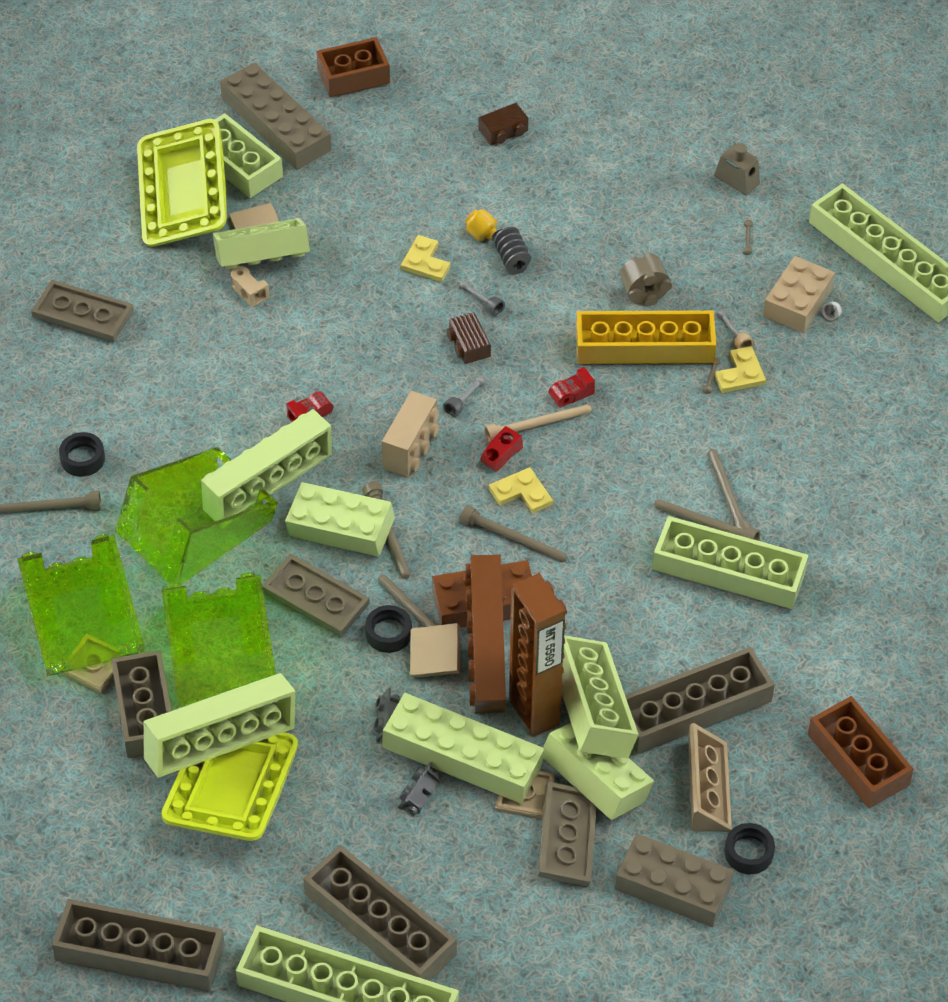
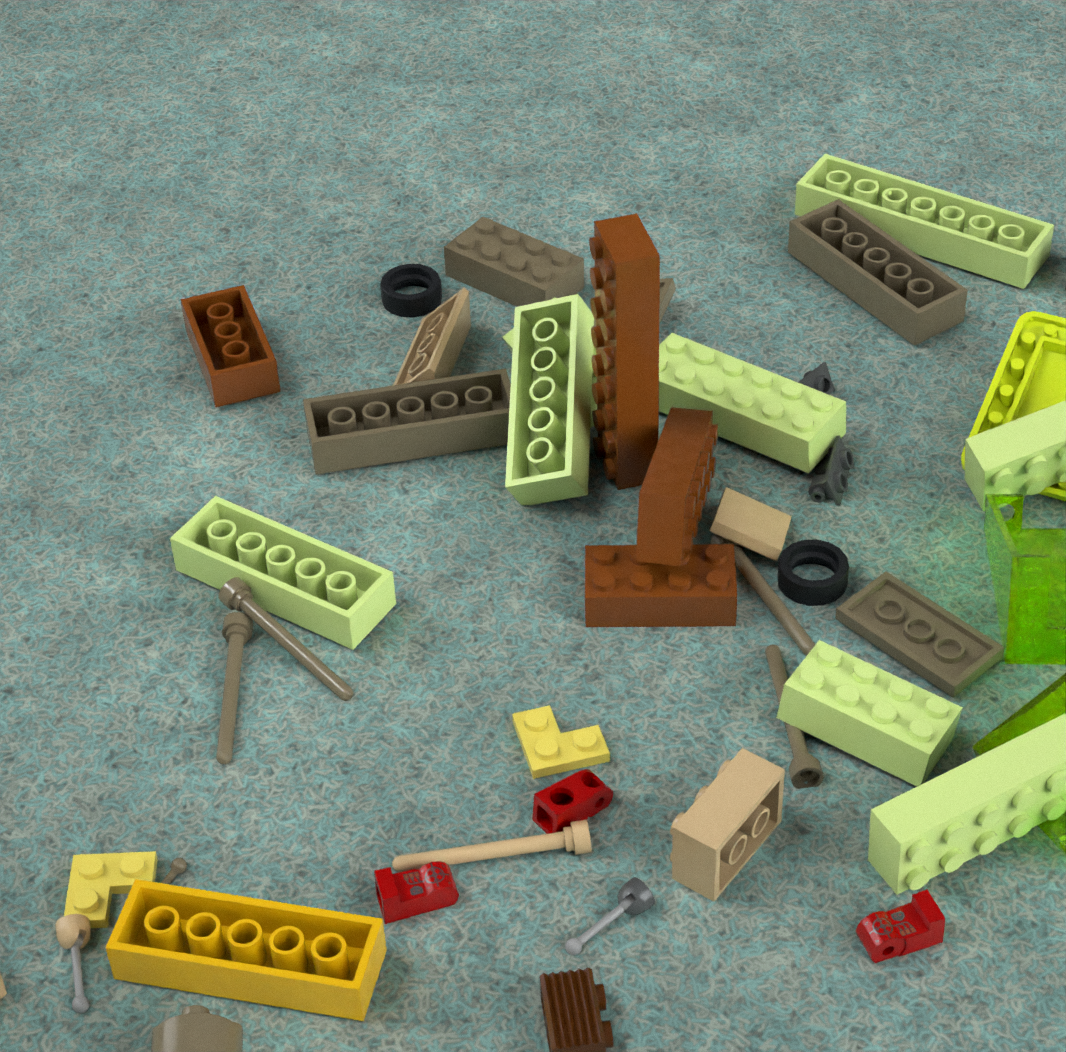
camera: 165 degrees left, 10 degrees down
(471, 516) = (648, 707): dark tan piece -> none

